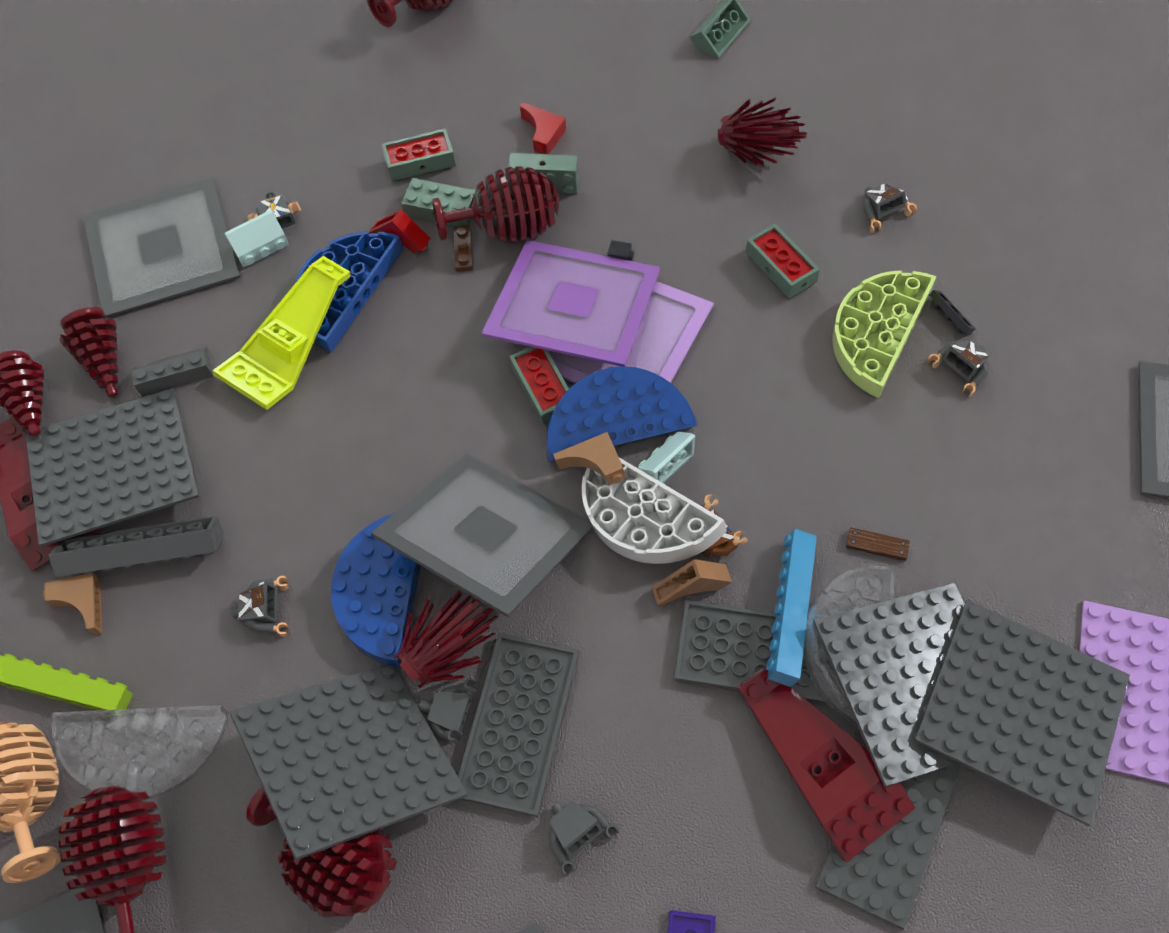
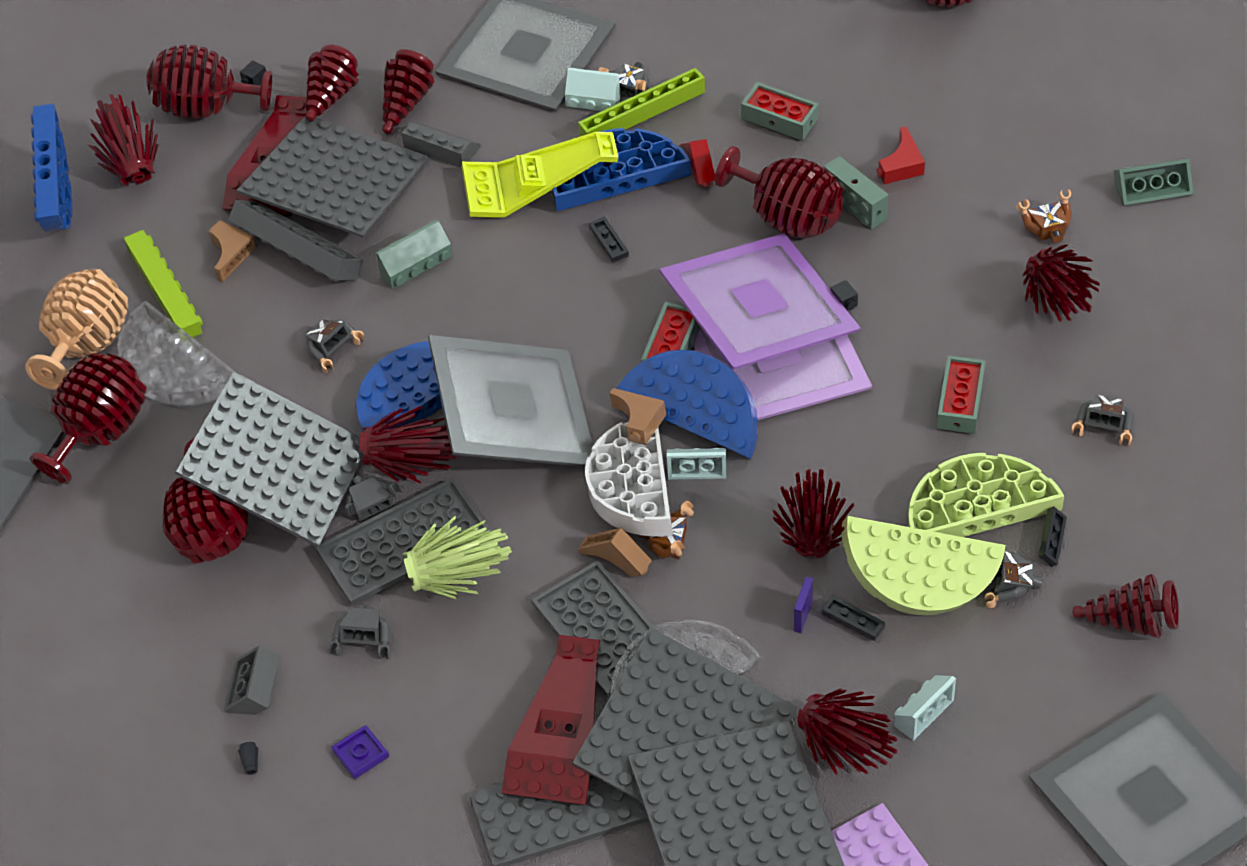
camera: 45 degrees right, 10 degrees down
(257, 477) = (414, 254): none -> sand green slope
(310, 223) = (646, 104): none -> lime brick
(398, 343) = (609, 239): none -> black plate
(419, 195) = (753, 149): sand green brick -> none
(463, 248) = (733, 207): reddish brown plate -> none
(599, 691) = (447, 557): none -> yellowish green plant
(689, 98) = (1047, 220): none -> torso
(792, 608) = (683, 605): dark azure brick -> none
(813, 428) = (813, 526): none -> dark red plant
(870, 502) = (803, 605): none -> dark purple tile
(877, 544) = (780, 641): reddish brown tile -> none
(904, 481) = (853, 617): none -> black plate
(916, 406) = (918, 567): none -> yellowish green brick
(998, 574) = (830, 723): none -> dark red plant
(1030, 501) = (925, 705): none -> light aqua slope
(1067, 313) = (1135, 607): none -> dark red plant

